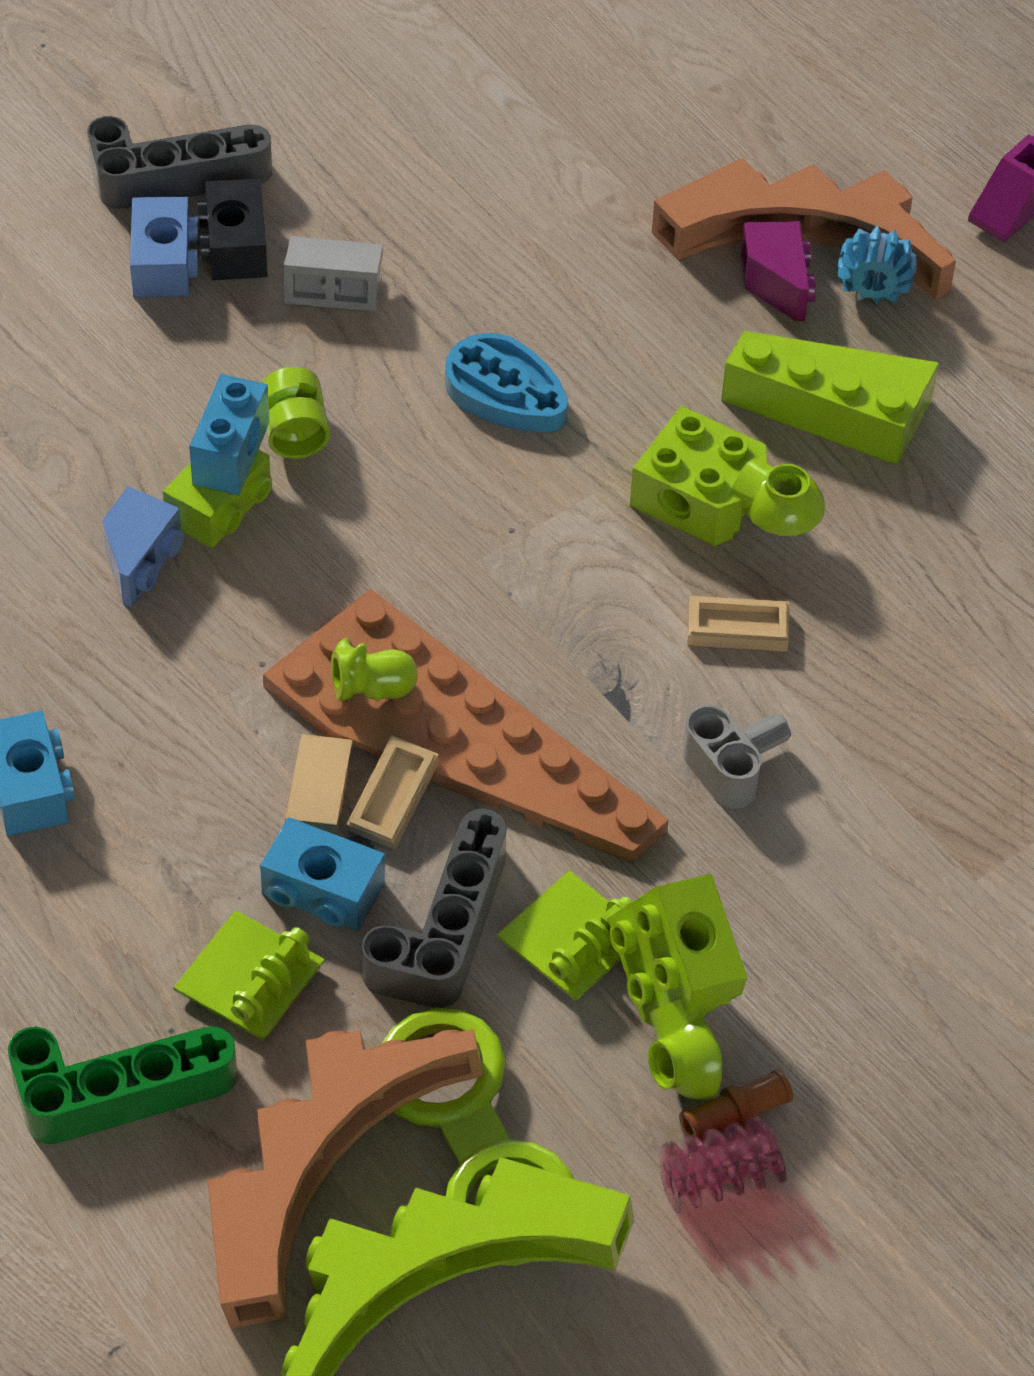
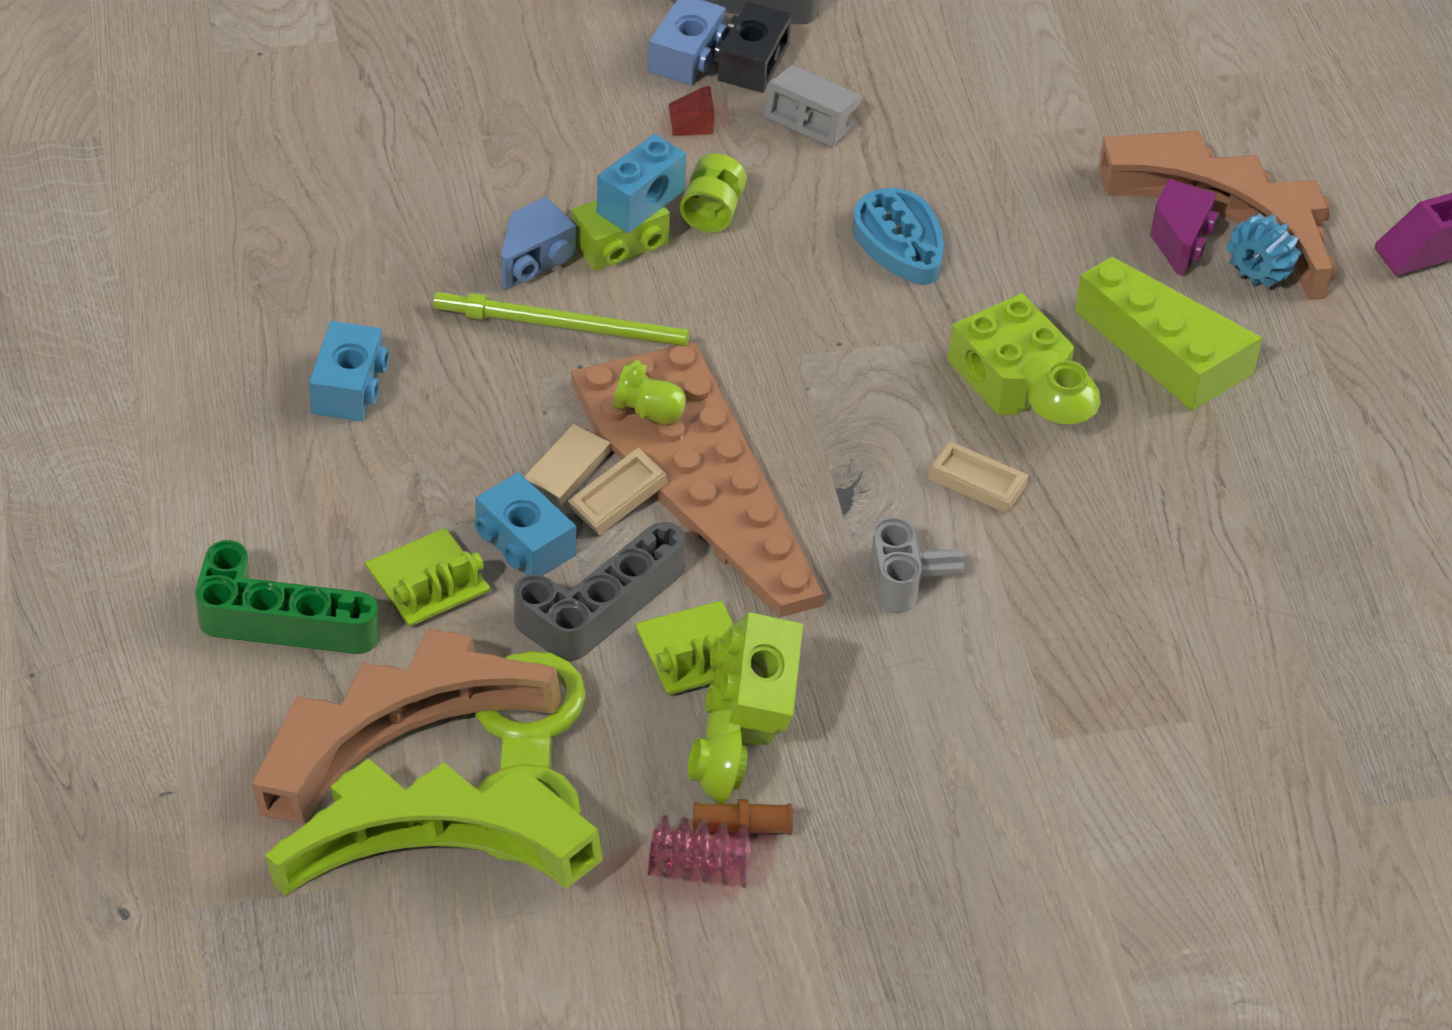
camera: 25 degrees right, 5 degrees down
(120, 639) = (479, 307): none -> lime bar
(214, 328) = (692, 113): none -> clear red slope

